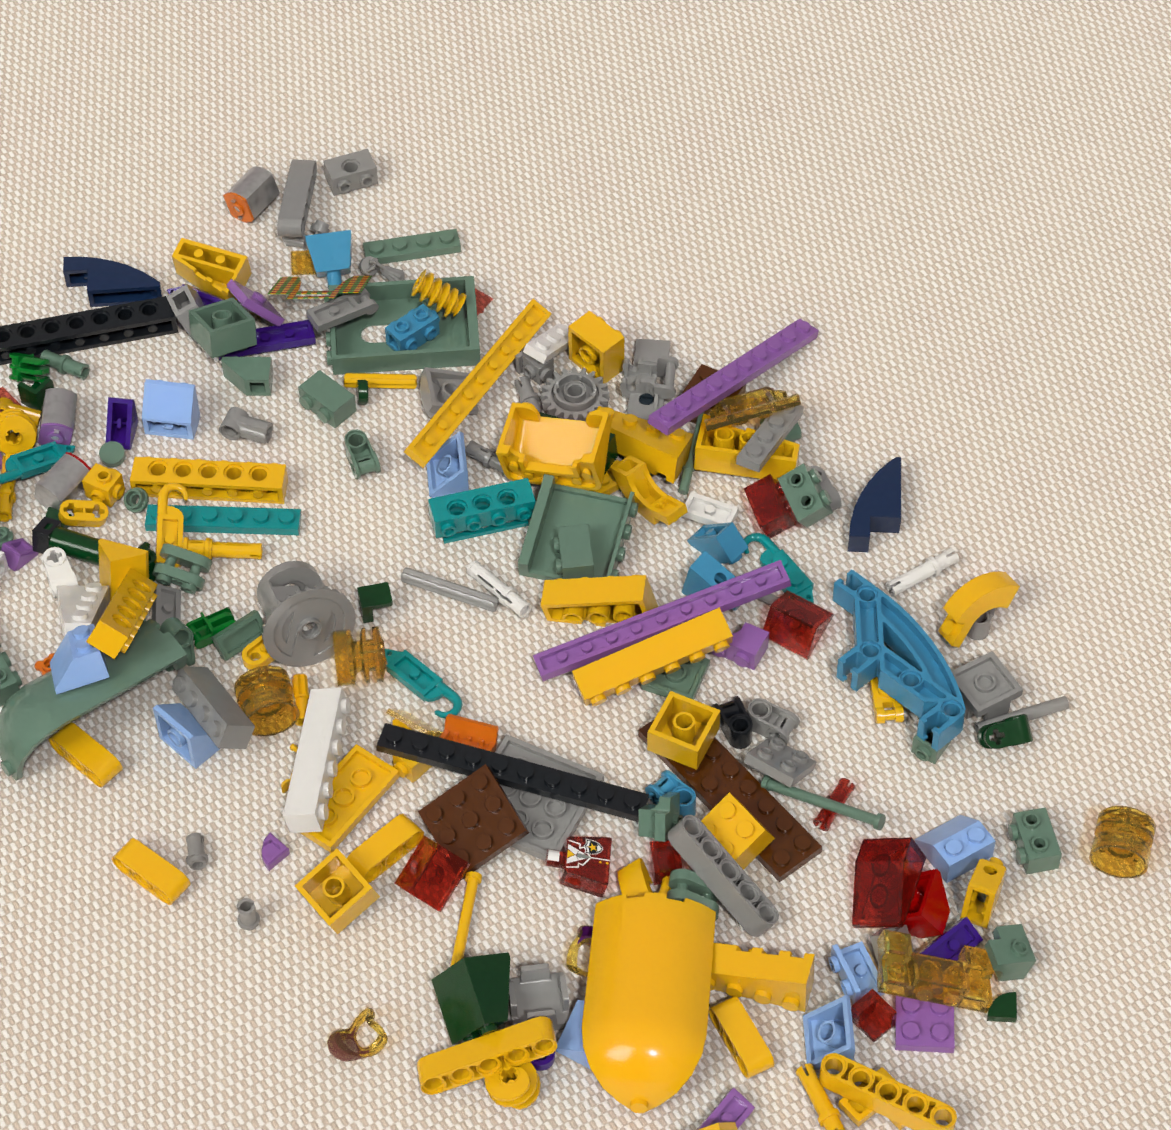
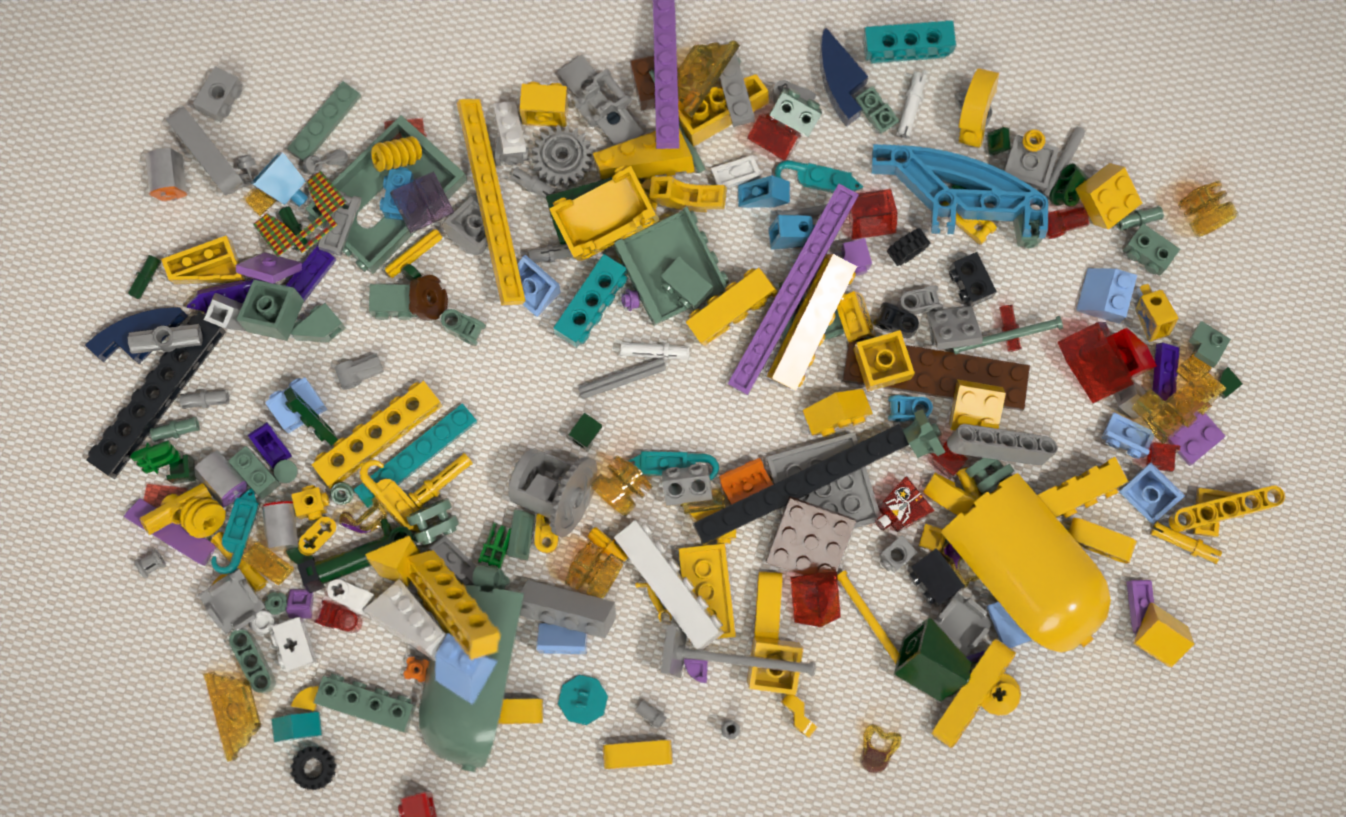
camera: 45 degrees left, 25 degrees up
(25, 500) = (267, 563): none -> clear yellow slope
(34, 584) = (334, 617): none -> clear red piece
(88, 433) = (254, 472): none -> sand green brick
(109, 361) = (204, 399): none -> light grey pin
(119, 522) = (350, 522): none -> clear yellow piece
(124, 290) = (151, 339): none -> light grey piece
(154, 799) = (583, 700): none -> teal piece
(156, 252) = (144, 277): none -> dark green axle
(169, 419) = (309, 416): none -> dark green plate
(263, 813) = (675, 653): none -> light grey tile
(311, 284) = (291, 222): none -> dark green axle
(318, 953) = (800, 722): none -> yellow piece
(342, 406) = (419, 305): none -> reddish brown plate
(413, 703) = (687, 490): none -> light grey brick
(422, 341) = (422, 202): none -> clear purple slope
(517, 536) = (630, 299): none -> medium lavender plate
(542, 888) = (906, 550): none -> light grey brick
(552, 936) = (935, 578): none -> black slope
(583, 913) = (931, 538): none -> yellow tile
(606, 740) = (837, 411): none -> yellow brick
(703, 682) = (855, 317): none -> yellow panel
(802, 668) = (908, 247): none -> black tyre
(838, 740) = (978, 278): none -> black brick
(886, 554) = (876, 111): none -> sand green slope
(965, 756) = (1066, 221): none -> clear red piece
(966, 516) = (916, 34): none -> teal brick
(975, 651) = (999, 141): none -> dark green tile
(1002, 657) = (1033, 134): none -> yellow plate
(1033, 762) = (1109, 196): none -> yellow brick
(1055, 811) = (1140, 217): none -> sand green pin

